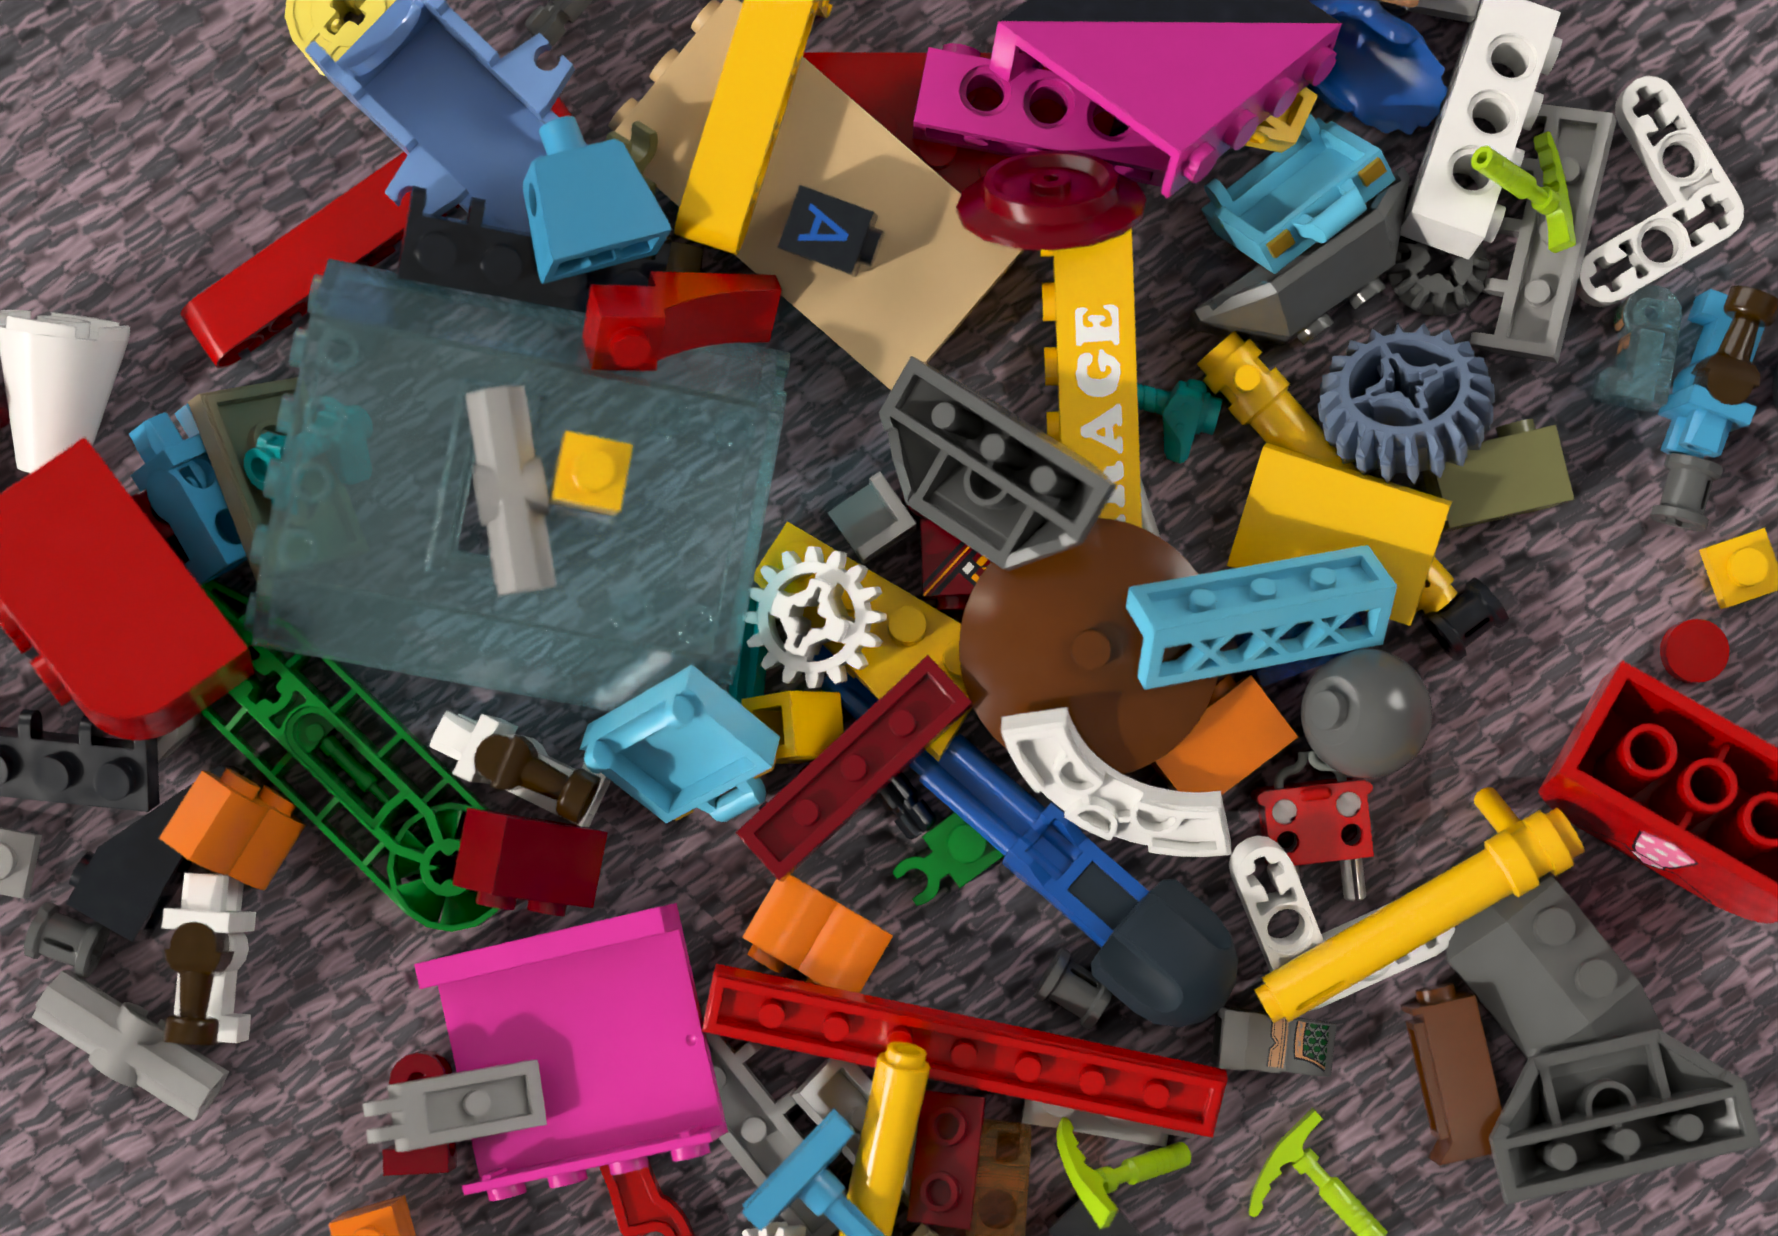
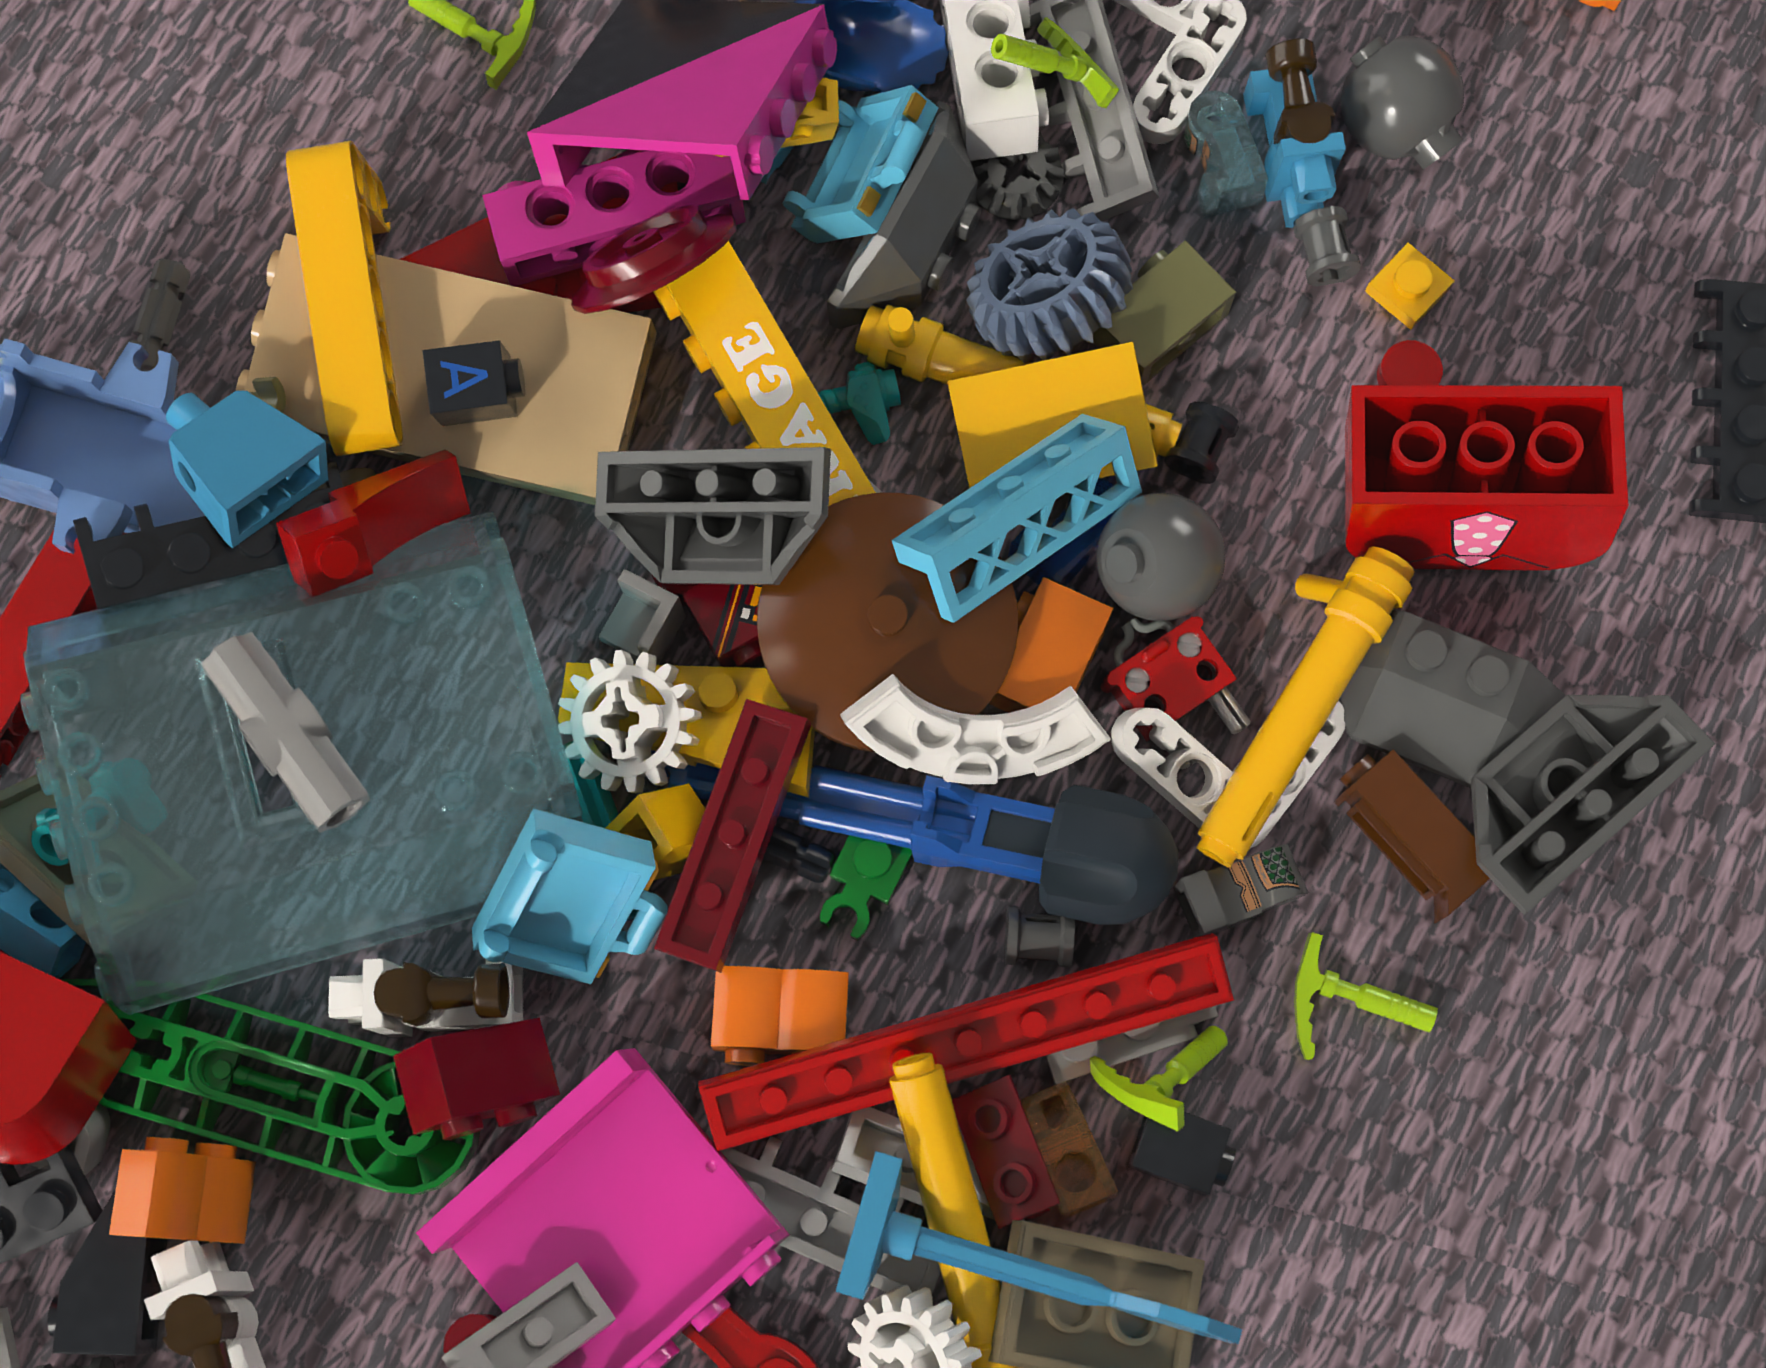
camera: 25 degrees left, 10 degrees down
(590, 473) = (352, 680): yellow brick -> none

